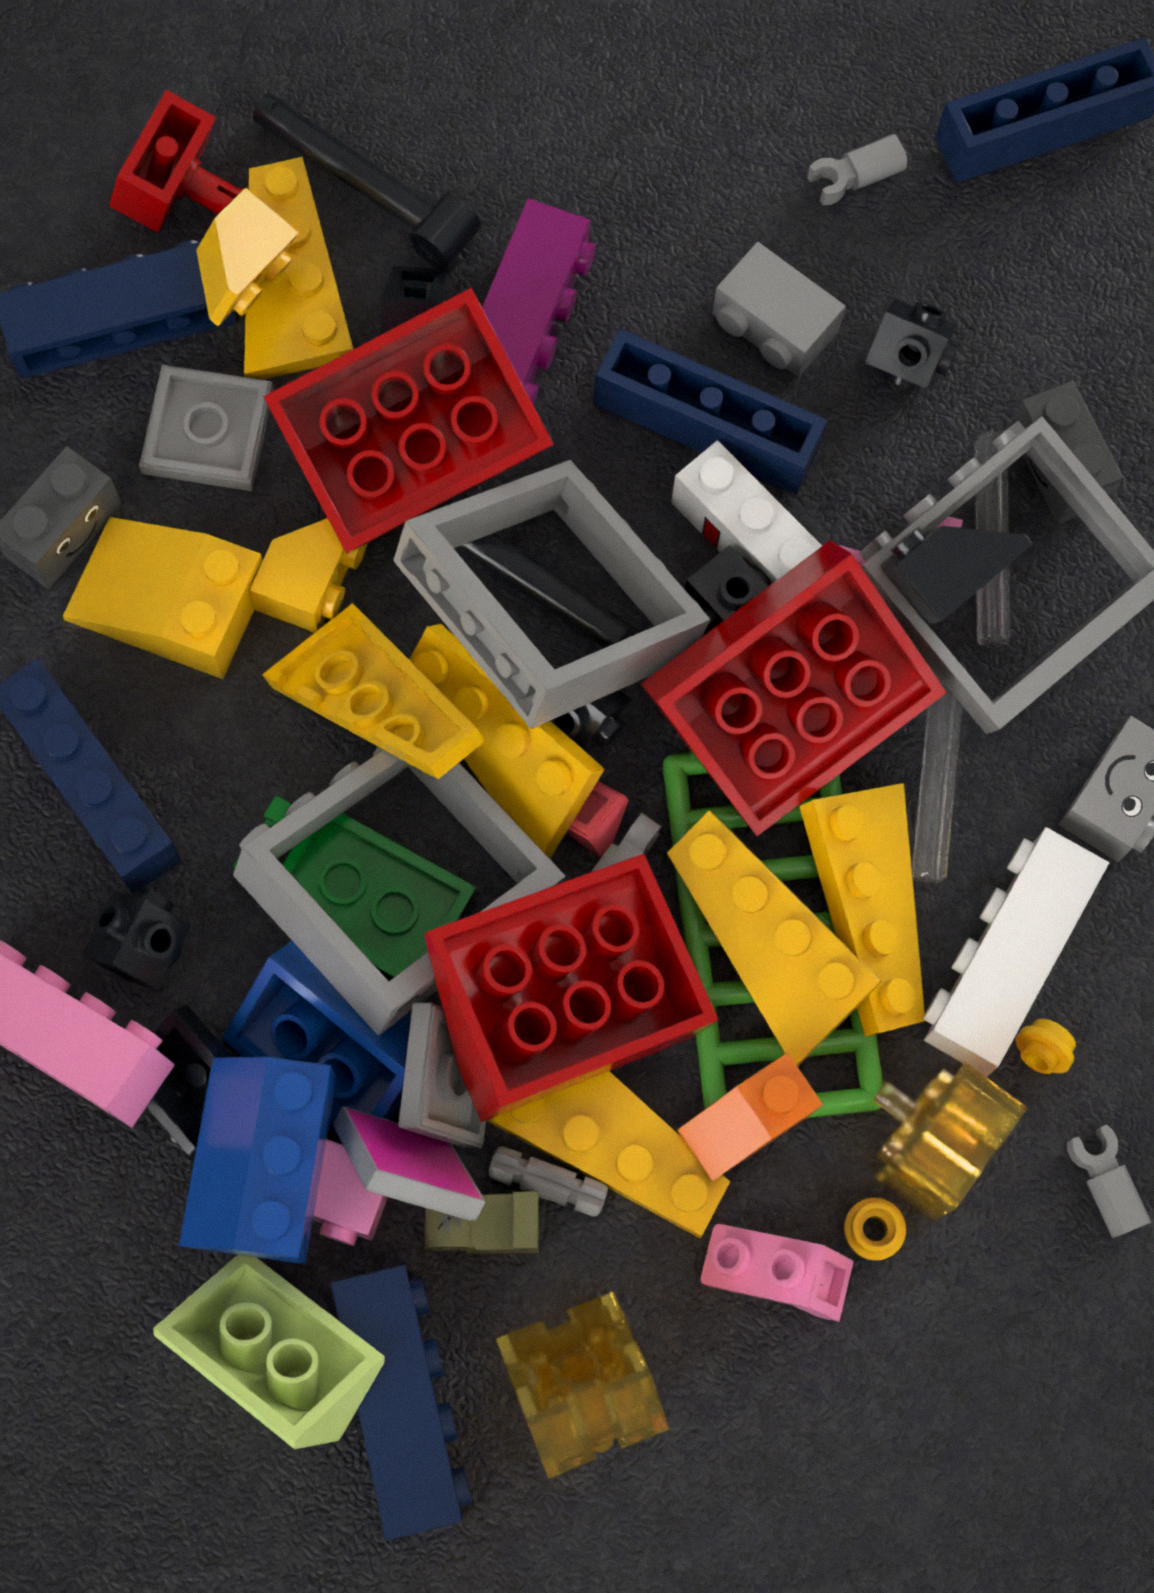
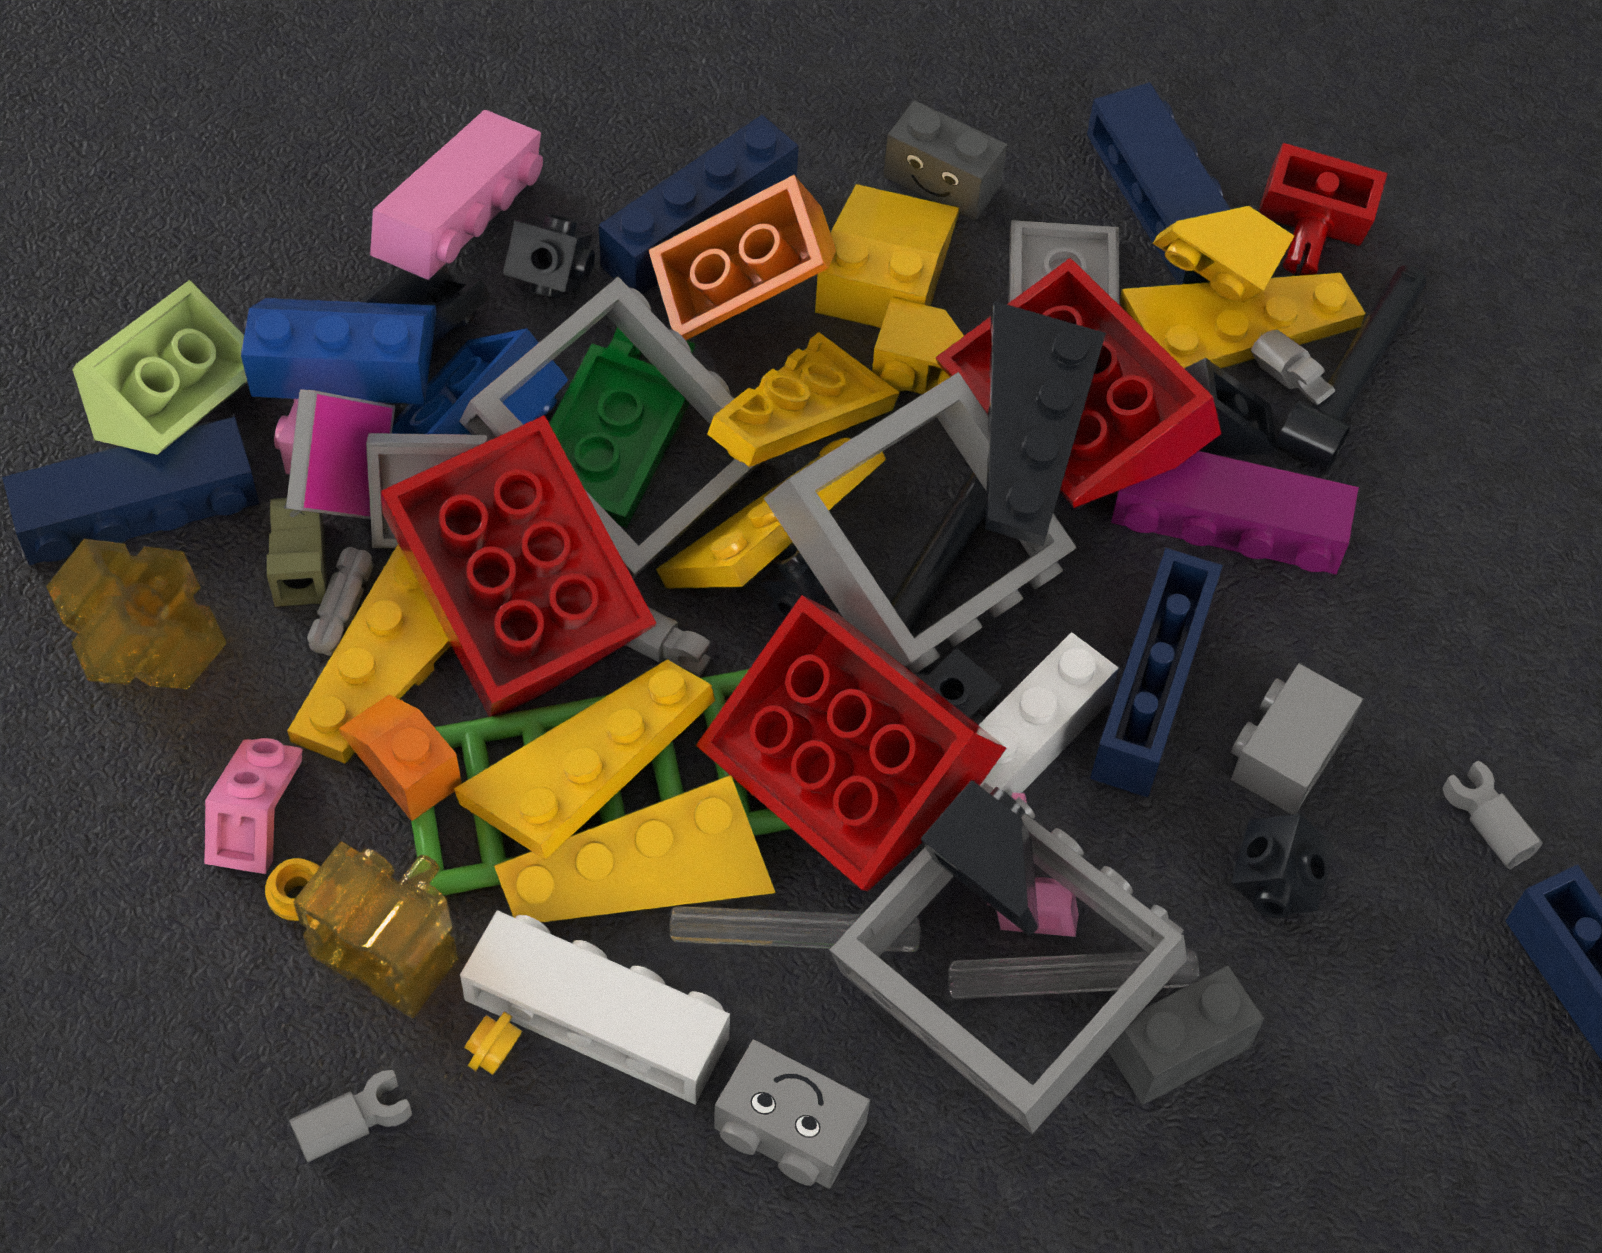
camera: 85 degrees right, 15 degrees down
(207, 726) = (742, 257): none -> orange slope
(367, 232) = (1291, 365): none -> light grey bar
(445, 453) = (1036, 403): none -> black wing
(599, 819) = (711, 611): coral slope -> none

